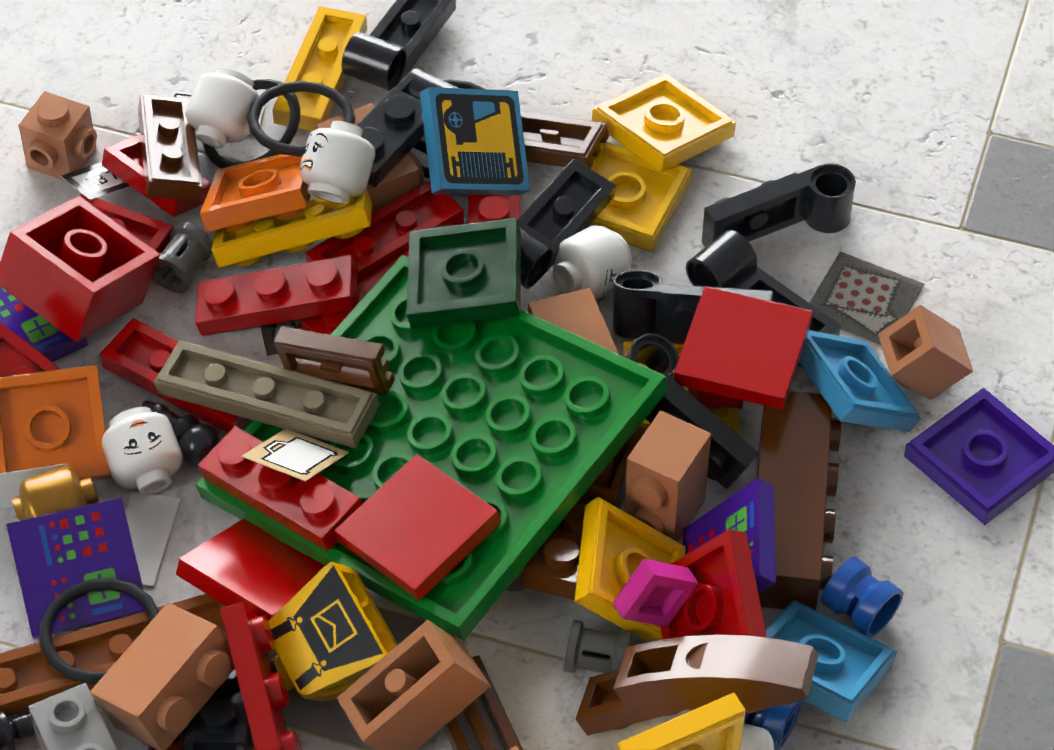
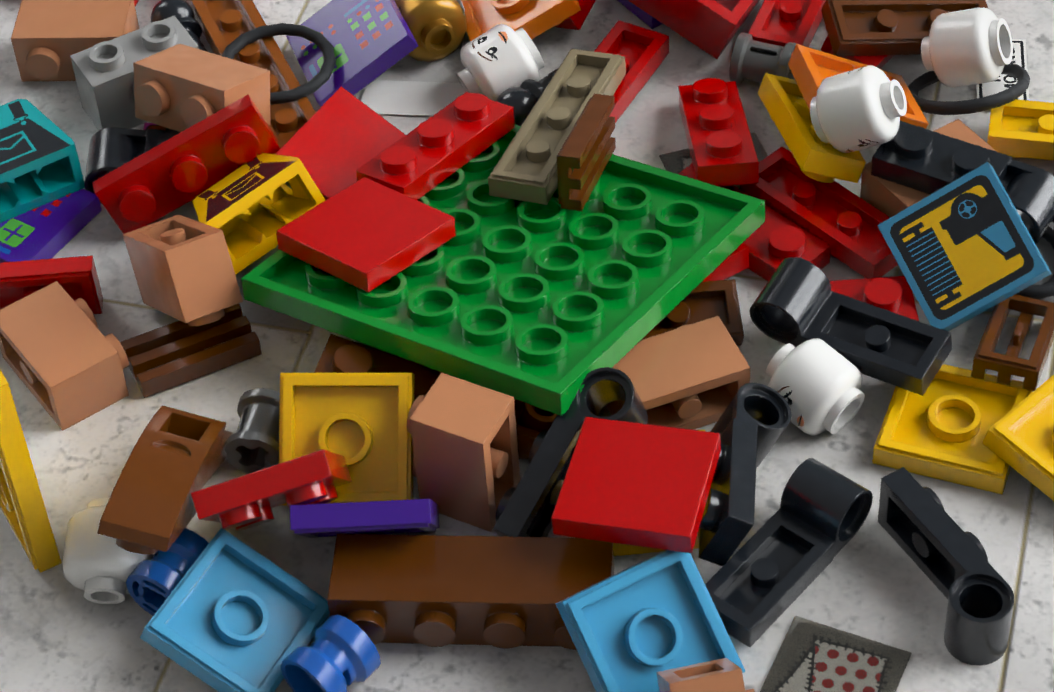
camera: 90 degrees right, 5 degrees down
(292, 87) = (974, 66): black piece -> none
(295, 454) = (461, 140): sticker -> none
(464, 273) = (712, 227): dark green plate -> none
(655, 593) = (289, 428): dark pink plate -> none

